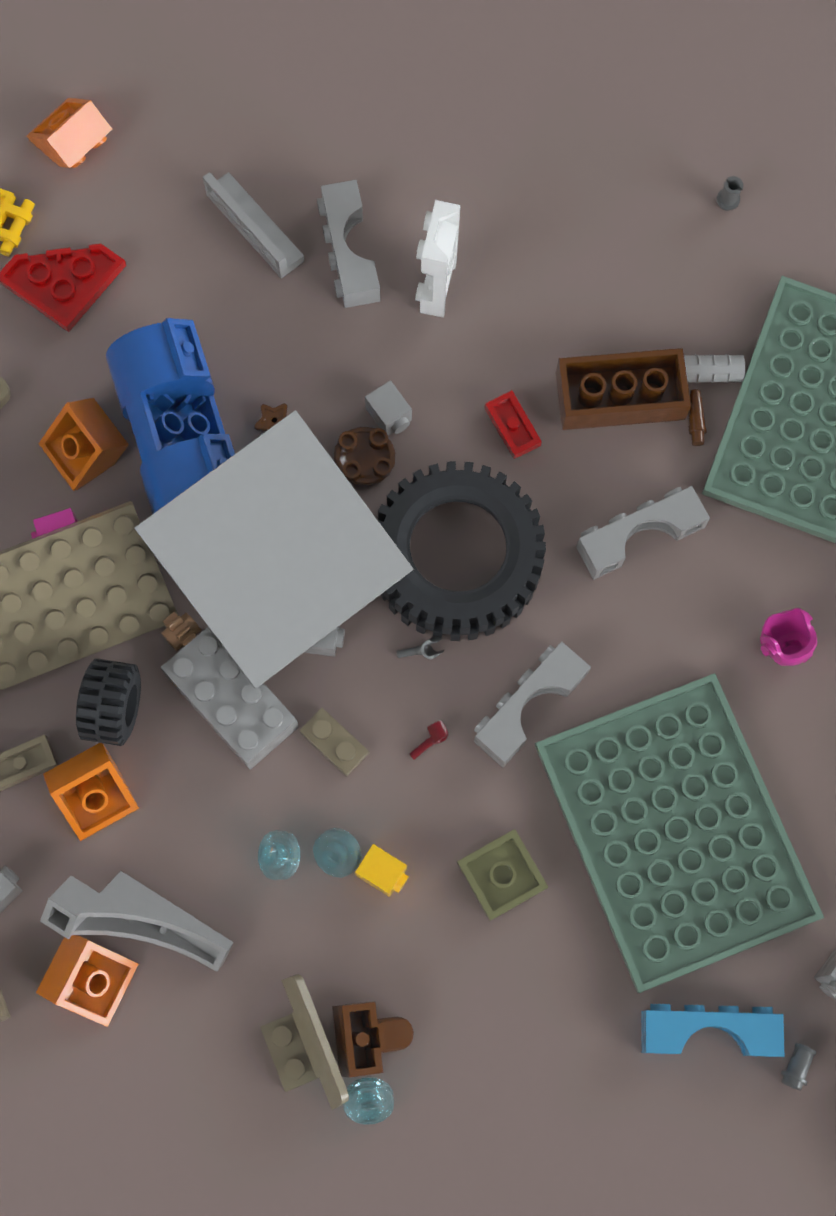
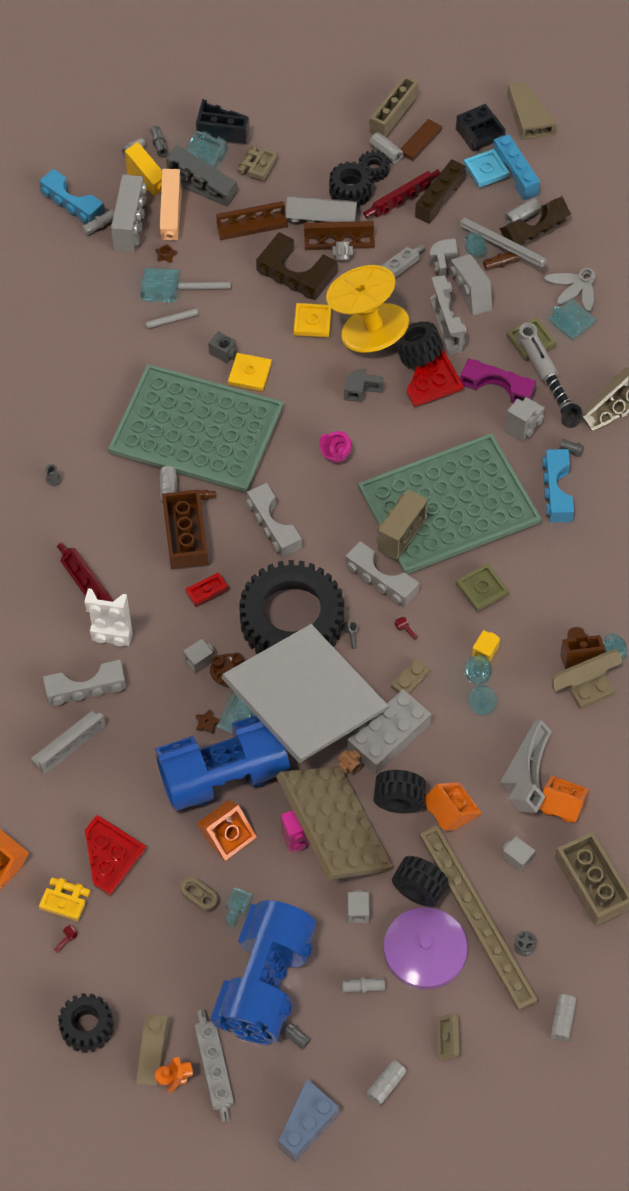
camera: 90 degrees left, 15 degrees down
(533, 245) = (82, 573): none -> dark red plate
(614, 734) = (402, 524): none -> dark tan brick

